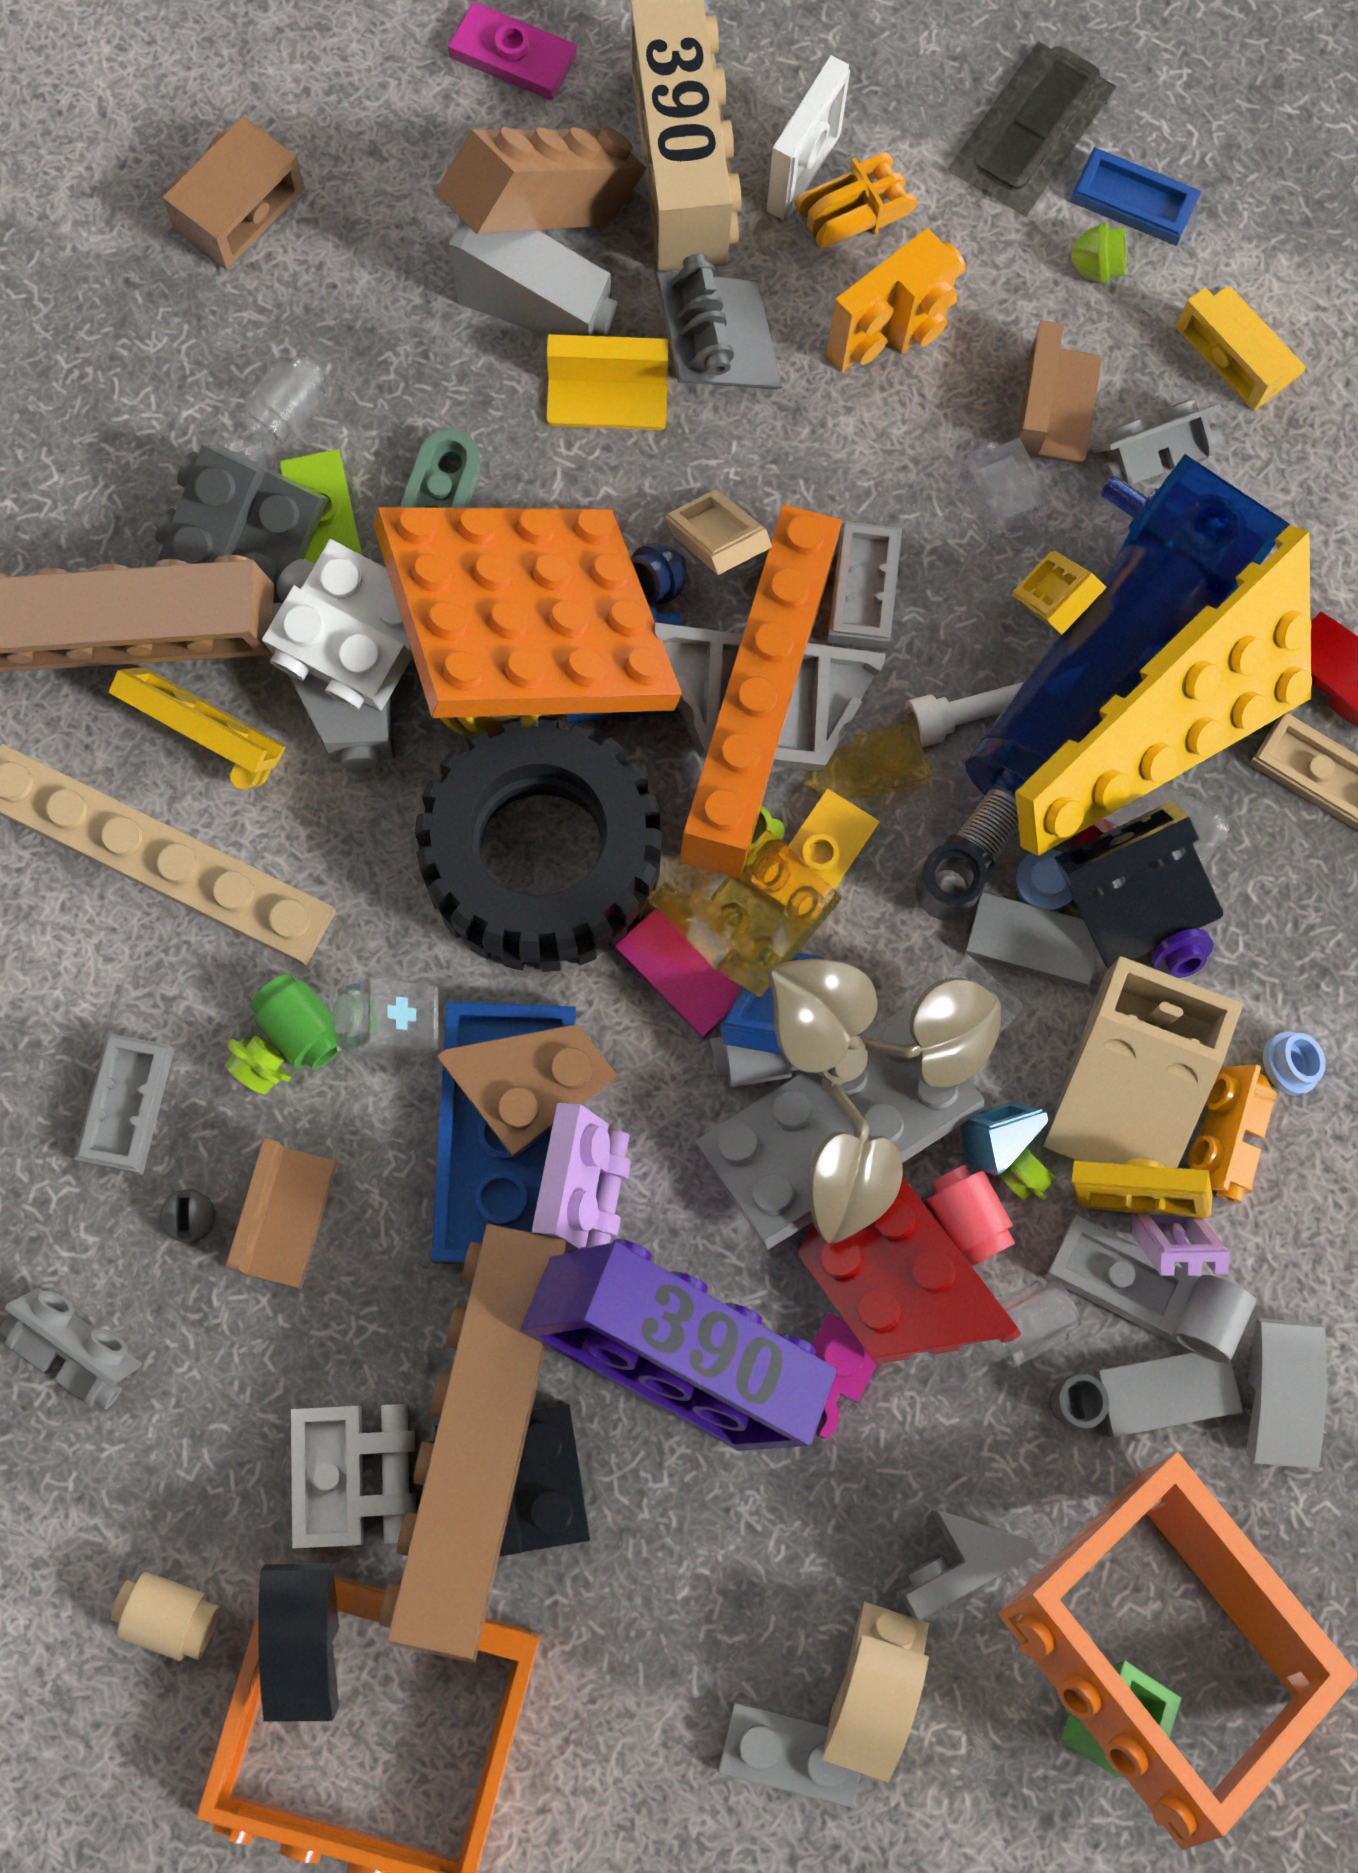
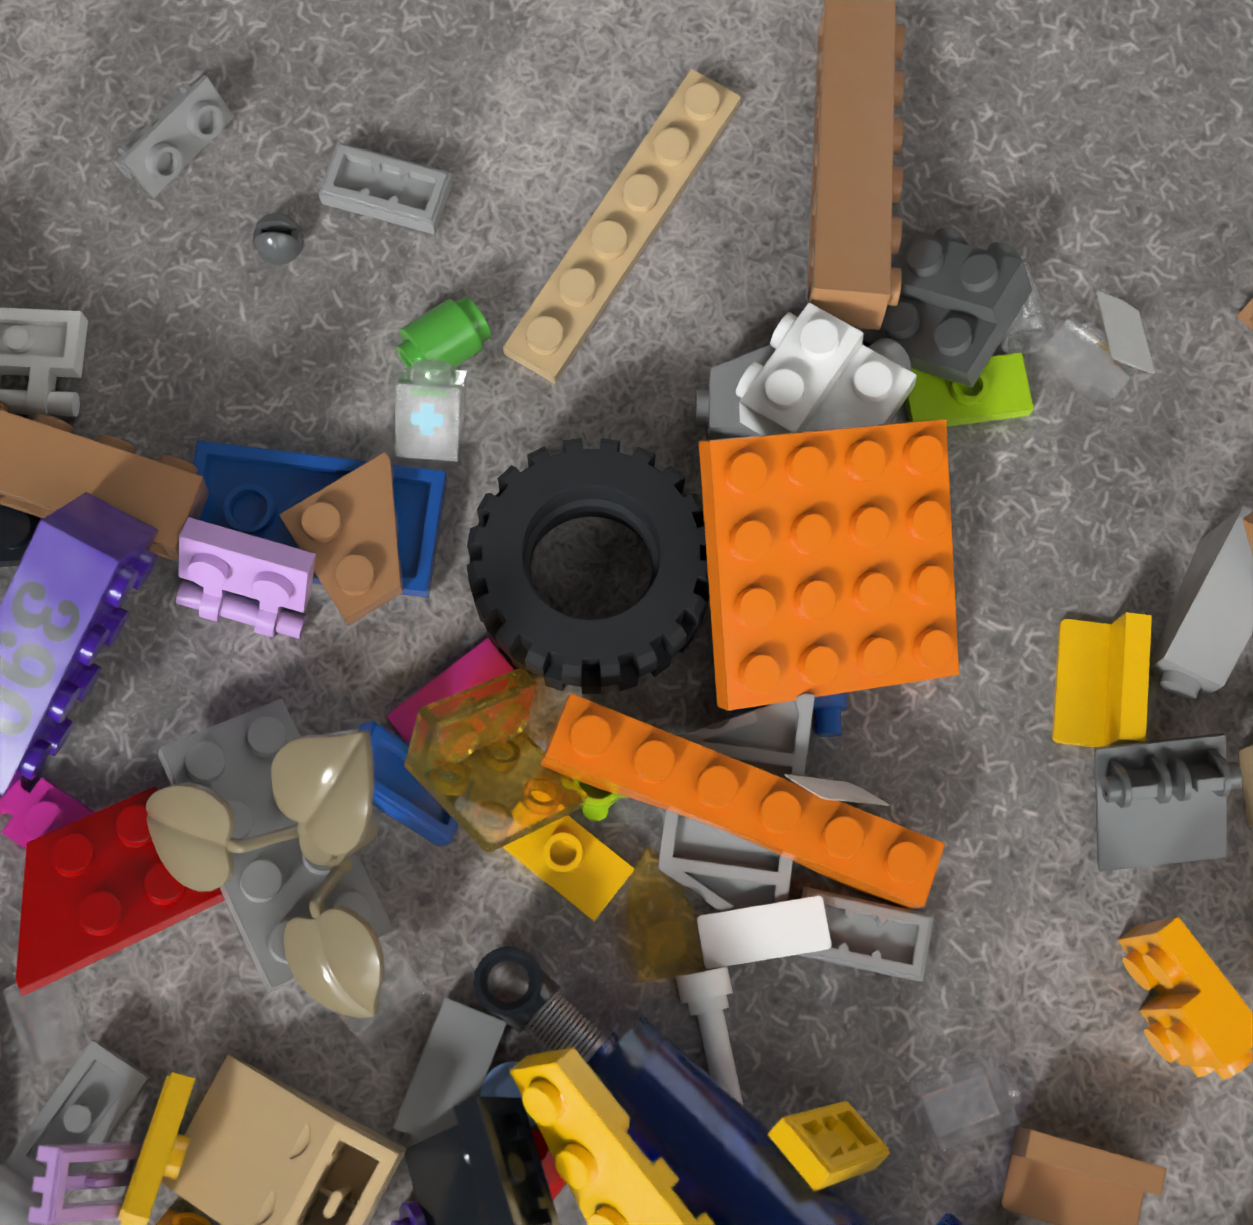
camera: 95 degrees right, 0 degrees up
(203, 722) = (748, 265): yellow hinge -> none
(256, 364) = (1125, 332): none -> white sticker
(256, 1064) = (406, 297): lime plate -> none
(281, 1215) = (264, 313): medium nougat panel -> none
(434, 488) = (986, 500): sand green plate -> none
(659, 572) = (884, 715): dark blue plate -> none
(718, 531) = (921, 776): tan tile -> none
(740, 603) = (836, 790): none -> white sticker
(874, 666) = (764, 932): none -> white sticker
(971, 1214) = (164, 967): coral brick -> none
(1000, 1135) = (242, 1011): dark azure slope -> none
(1028, 1176) = (203, 1032): lime plate -> none

